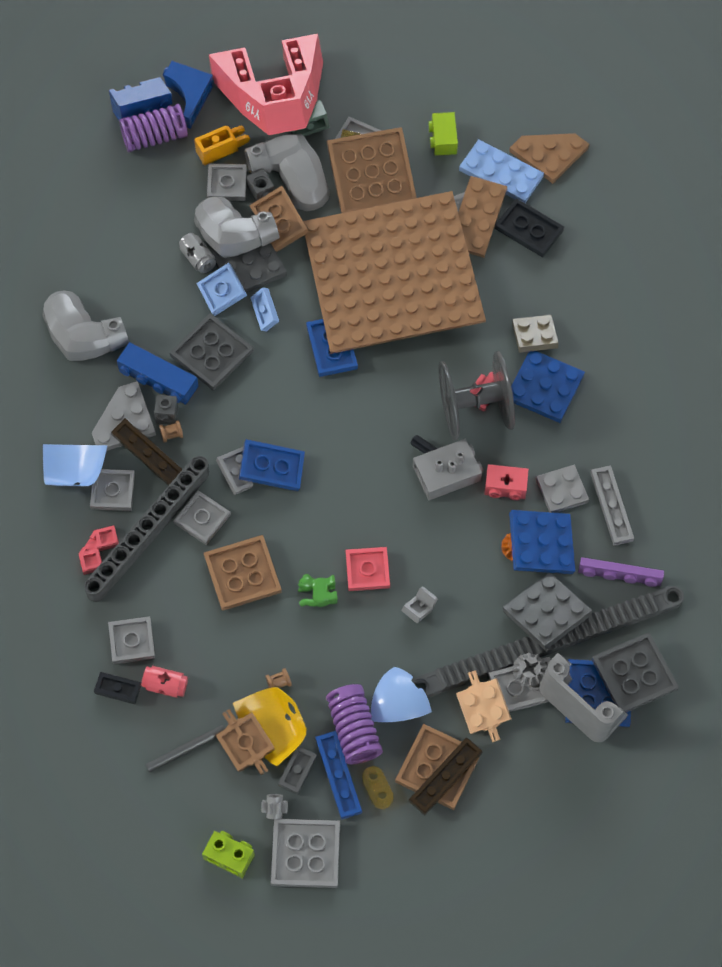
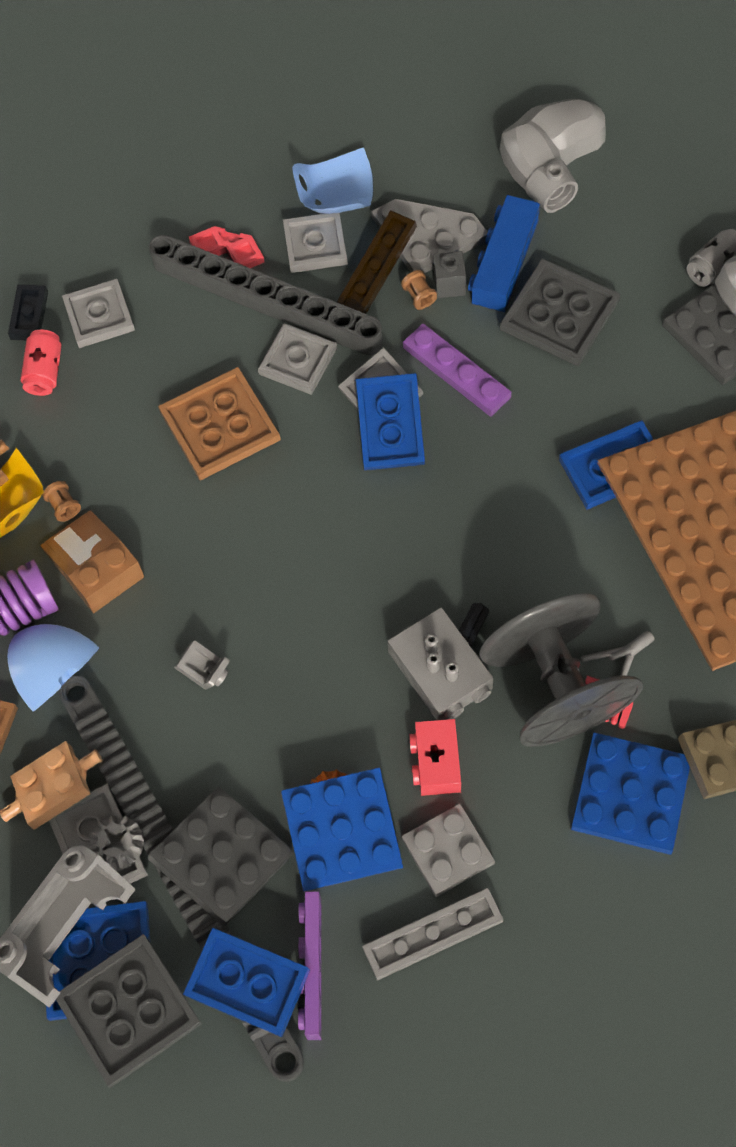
camera: 85 degrees right, 0 degrees up
(221, 289) = (666, 301): light blue tile -> none
(236, 422) = (457, 370): none -> medium lavender plate
(264, 309) = (657, 359): light blue plate -> none
(320, 589) = (206, 527): bright green animal -> none
(326, 666) = (93, 560): none -> medium nougat slope
(367, 569) = (253, 584): coral plate -> none
(457, 366) = (629, 650): none -> light grey plant
(629, 603) = (247, 982): none -> blue plate

